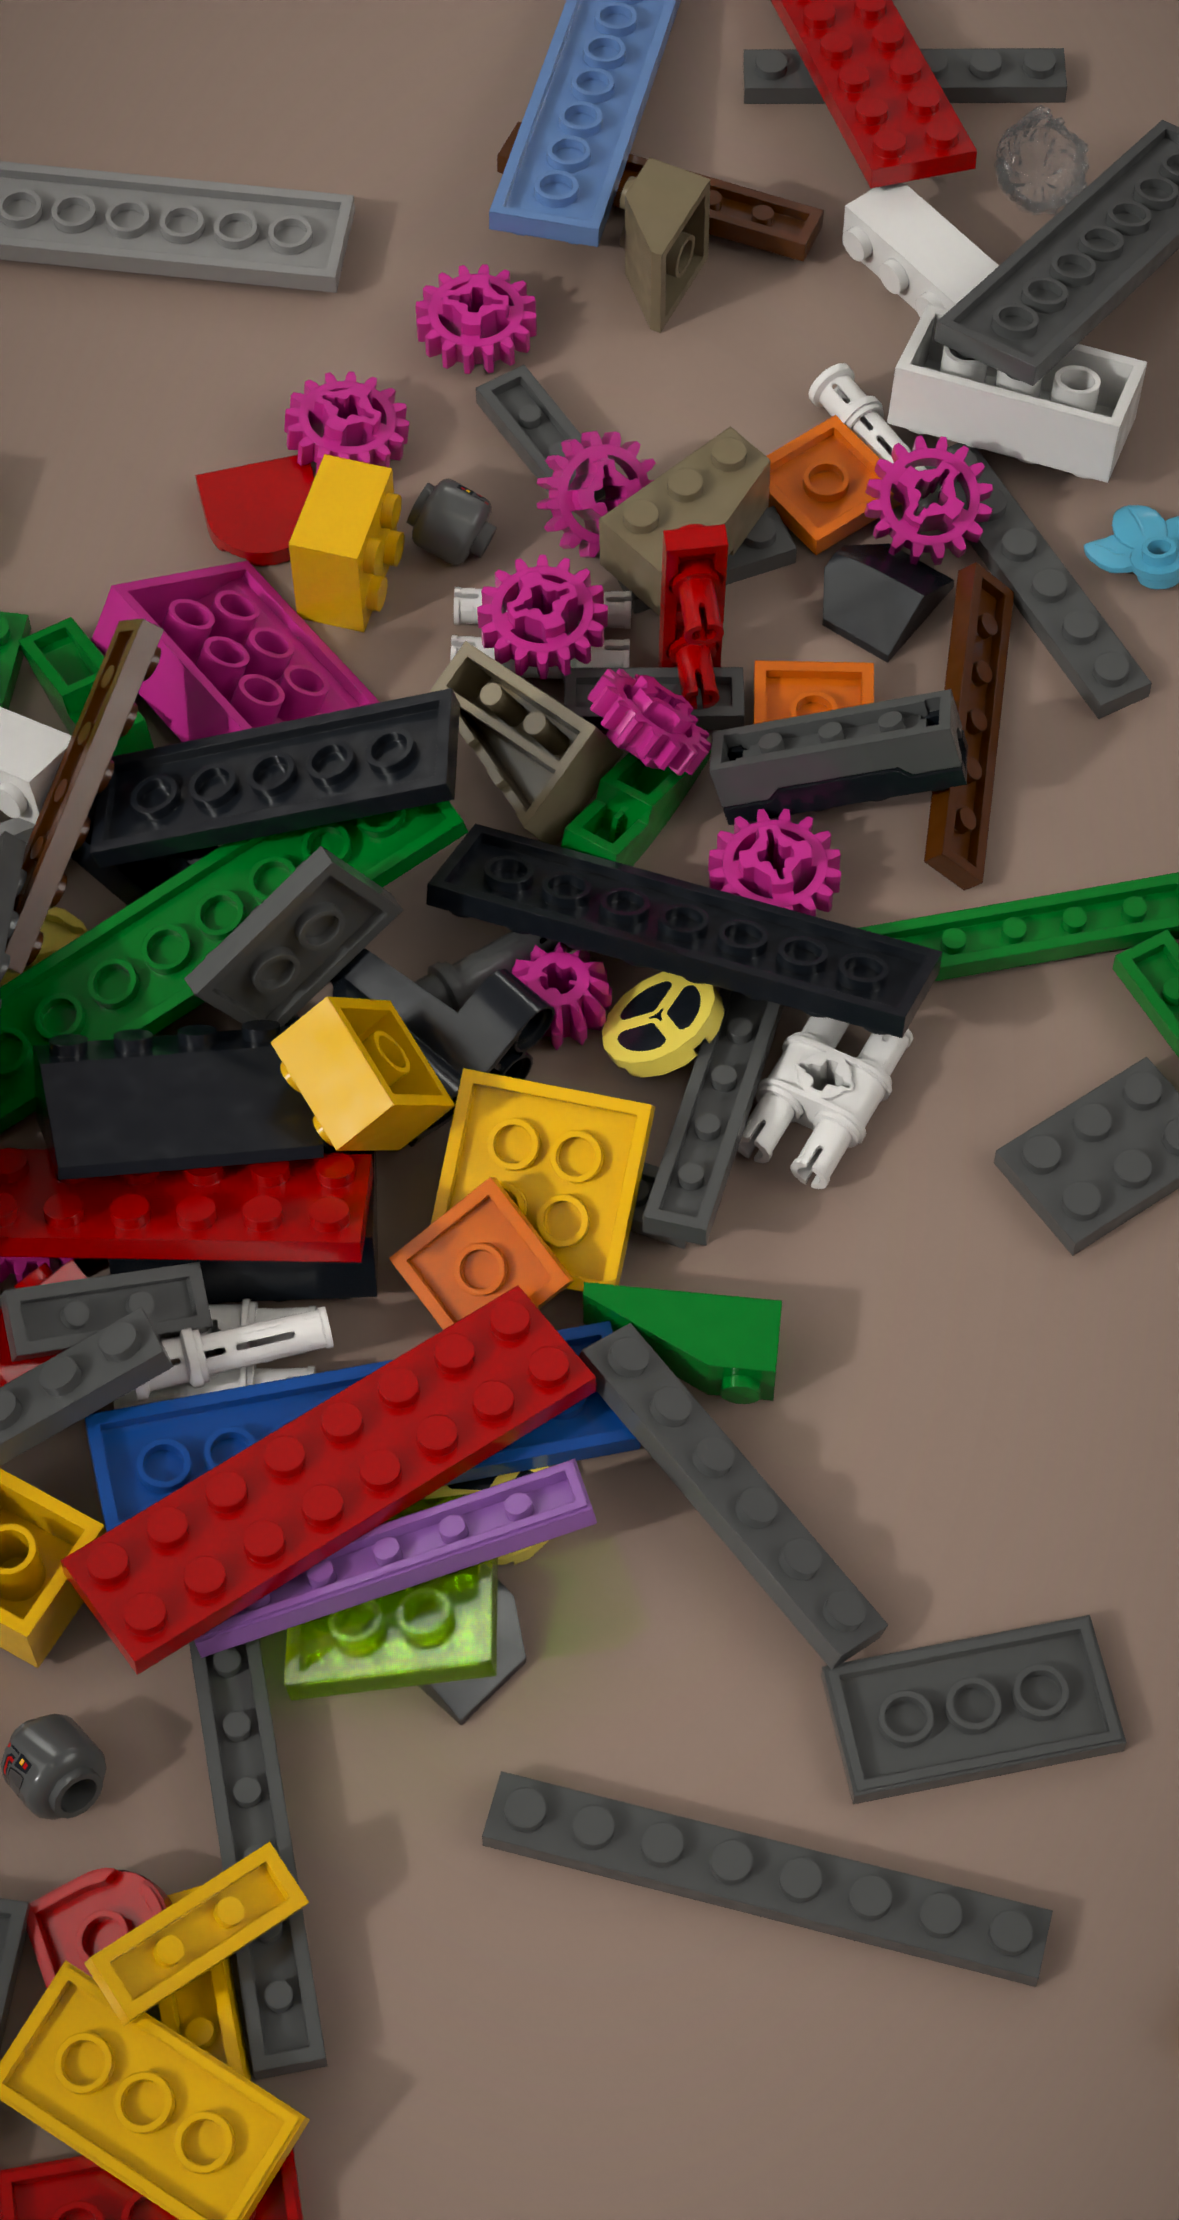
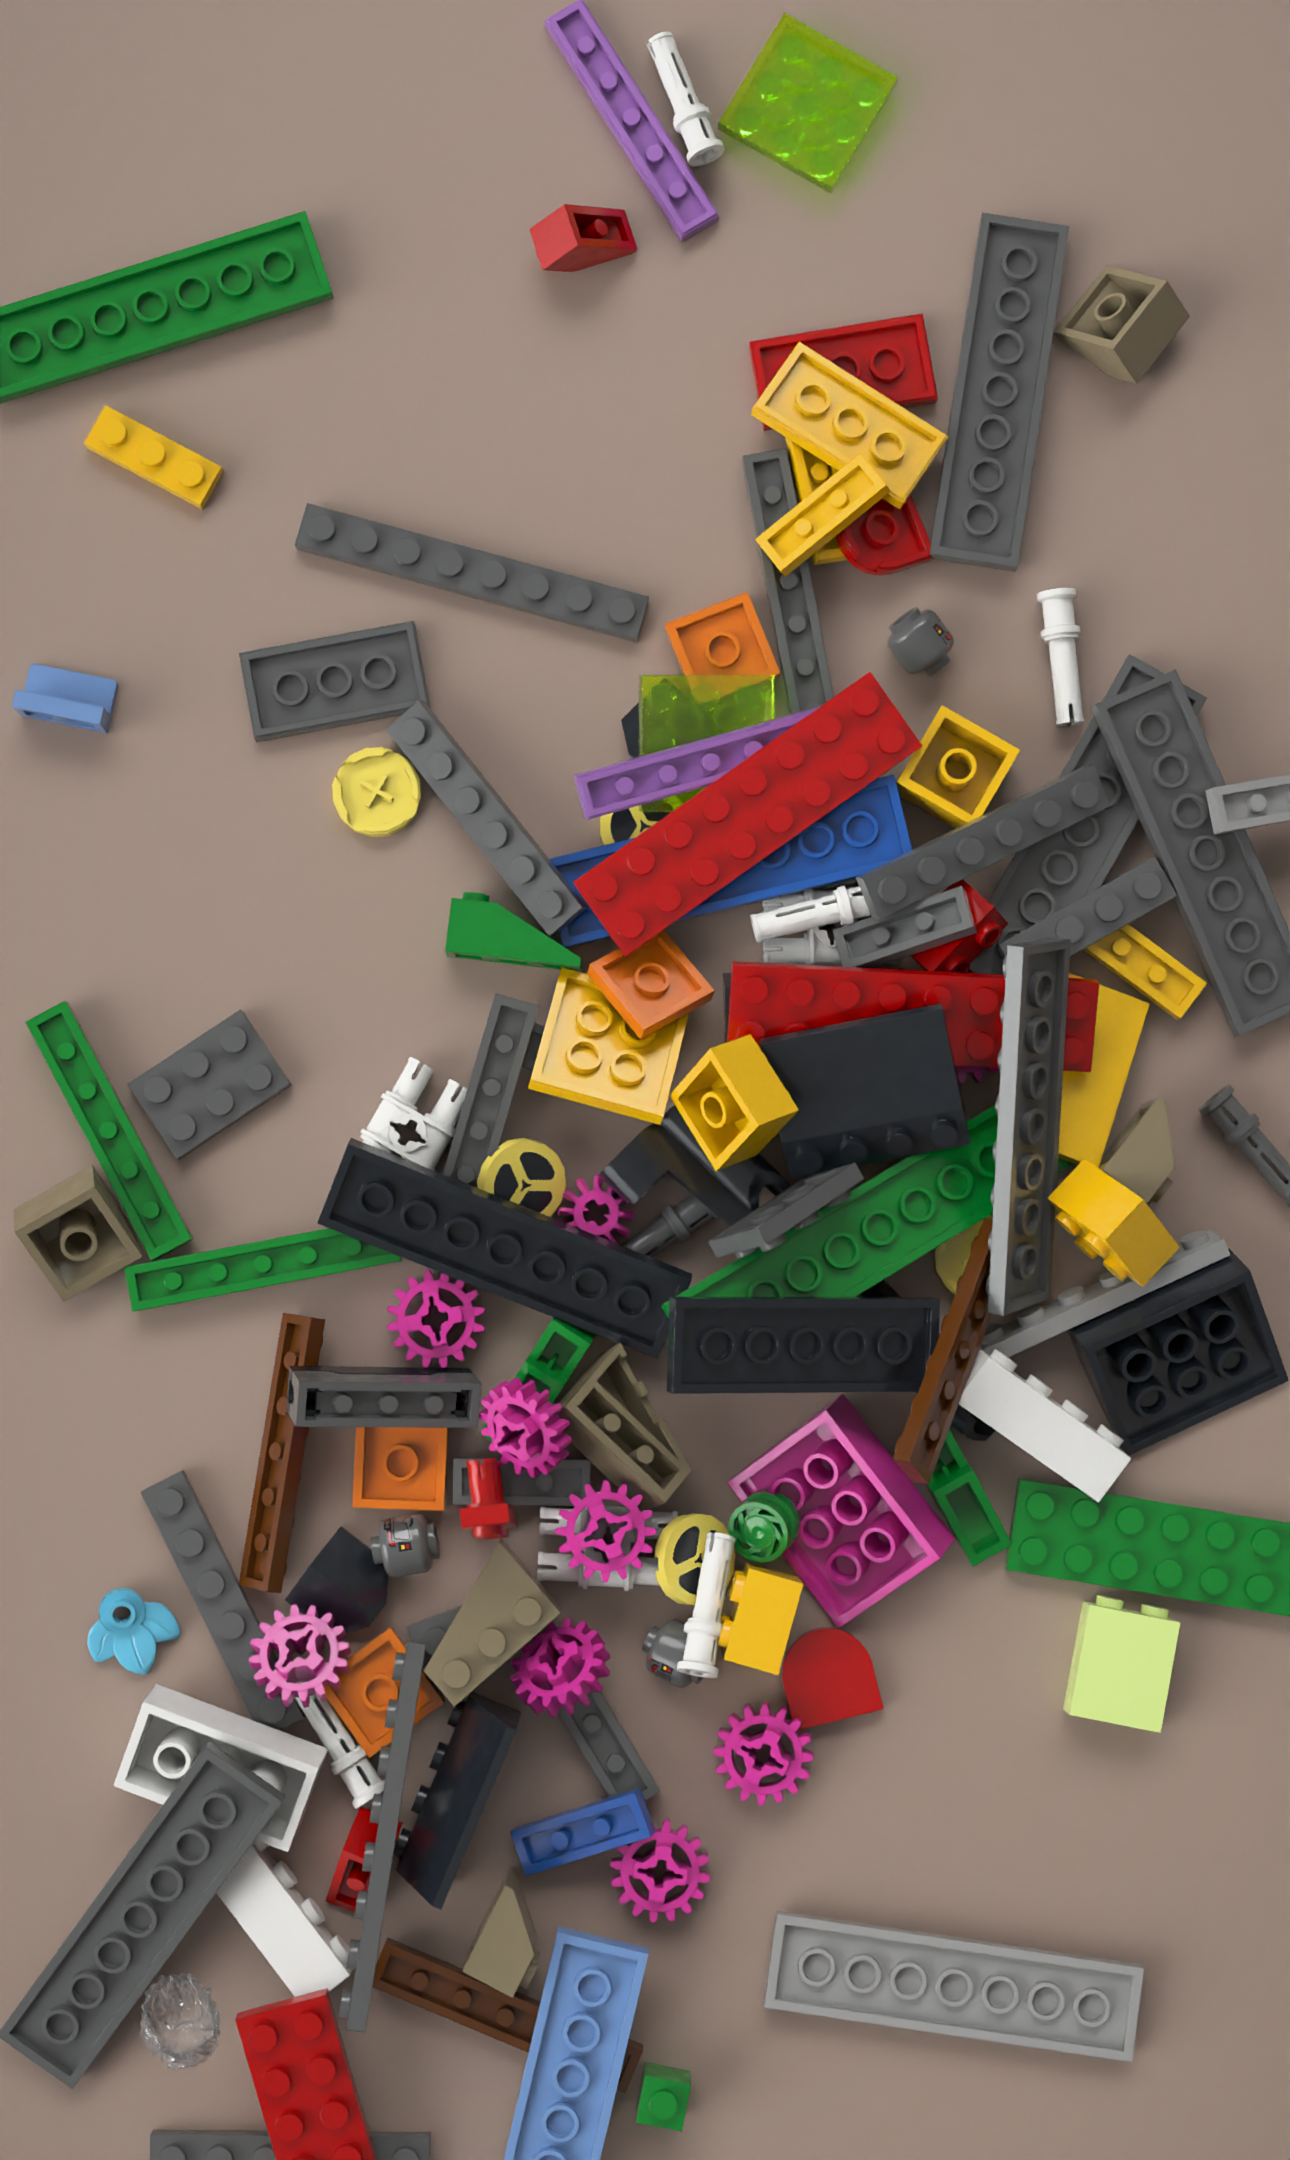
camera: 175 degrees right, 25 degrees up
(338, 646) = (765, 1524): none -> green wheel
(366, 1759) = (722, 640): none -> orange plate
(415, 519) = (705, 1625): none -> white pin
(428, 610) = (681, 1555): none -> light yellow tile
(473, 118) = (663, 2096): none -> green brick
(569, 344) = (583, 1831): none -> blue plate
(722, 345) = (456, 1796): none -> black slope
(801, 622) = (406, 1545): none -> dark grey head
(808, 324) = (379, 1855): none -> dark grey plate
(833, 324) = (348, 1874): none -> red slope
(898, 1547) = (377, 792): none -> light yellow tile

